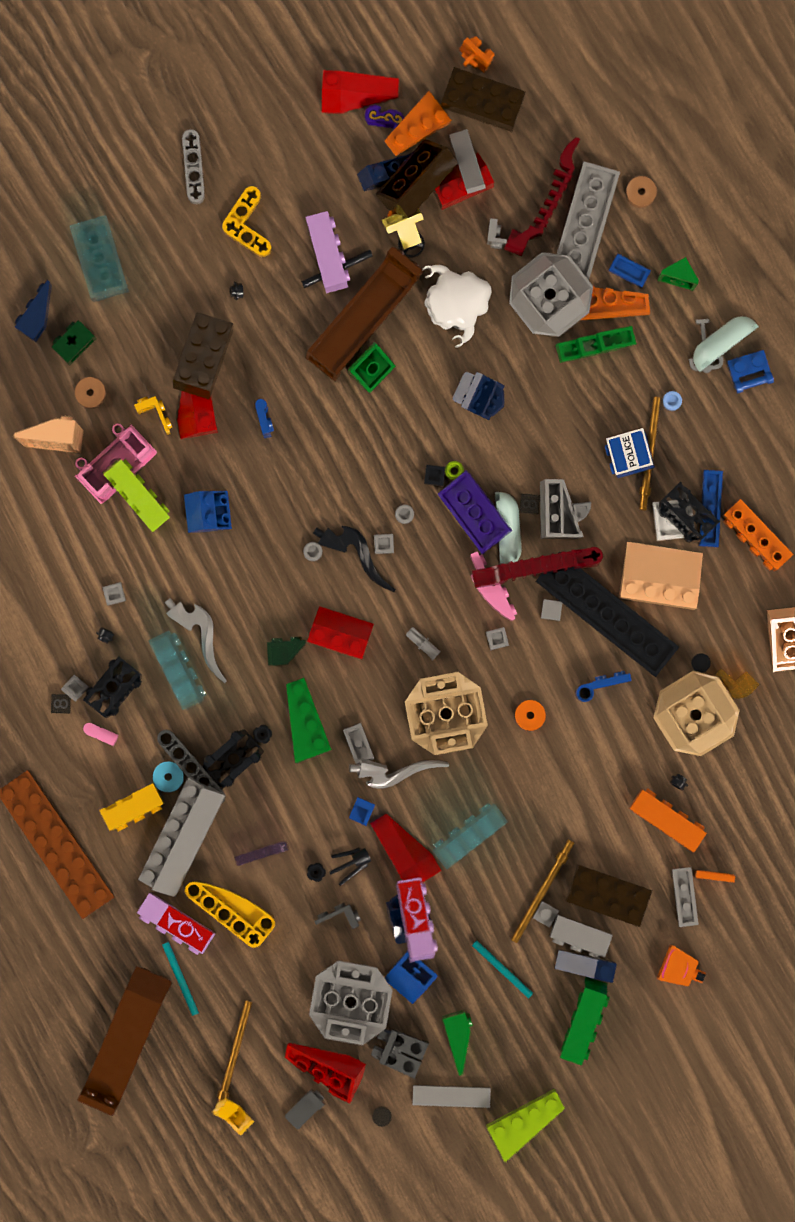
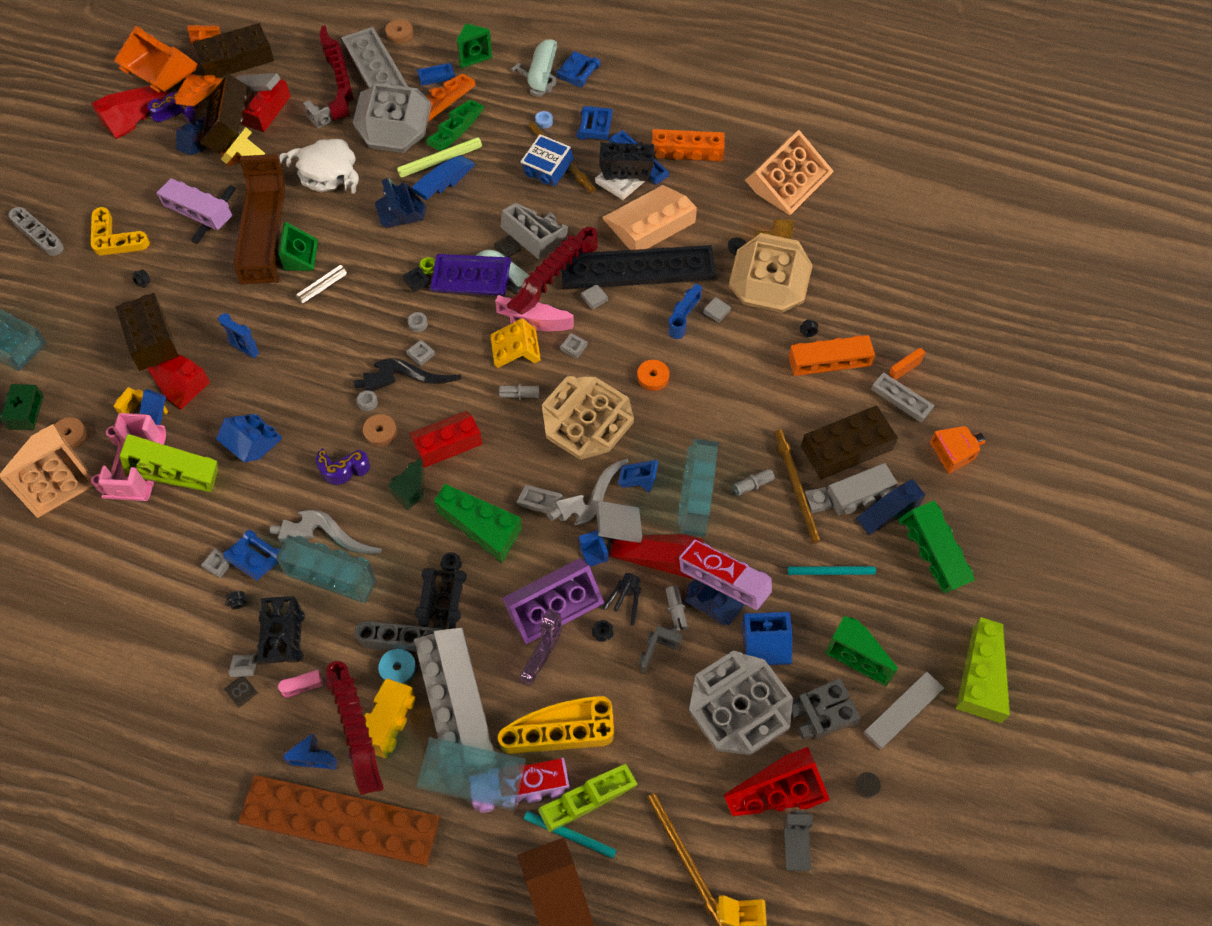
camera: 40 degrees left, 25 degrees down
(65, 786) = (305, 755): none -> blue slope
(109, 796) = (354, 726): none -> dark red piece
(135, 614) = (248, 559): none -> blue plate
(149, 898) = (471, 774): none -> clear light blue brick
(157, 431) = (153, 405): none -> blue tile
(209, 968) = (587, 797): none -> lime slope
(248, 597) = (343, 469): none -> dark purple animal
(301, 576) = (378, 422): none -> medium nougat piece
(303, 823) = (567, 590): none -> medium lavender slope
(363, 414) = (321, 283): none -> axle
(376, 901) = (676, 607): none -> light grey axle
(394, 809) = (619, 521): none -> light grey tile
(411, 59) = (154, 61): none -> orange windscreen
(440, 786) = (638, 474): none -> blue slope
(455, 601) = (515, 341): none -> yellow bracket
(515, 862) = (753, 482): none -> light grey axle
(538, 393) = (443, 176): none -> blue slope
(555, 367) = (439, 157): none -> yellowish green axle
(629, 704) = (717, 310): none -> light grey tile
(712, 448) = (600, 125): none -> blue plate

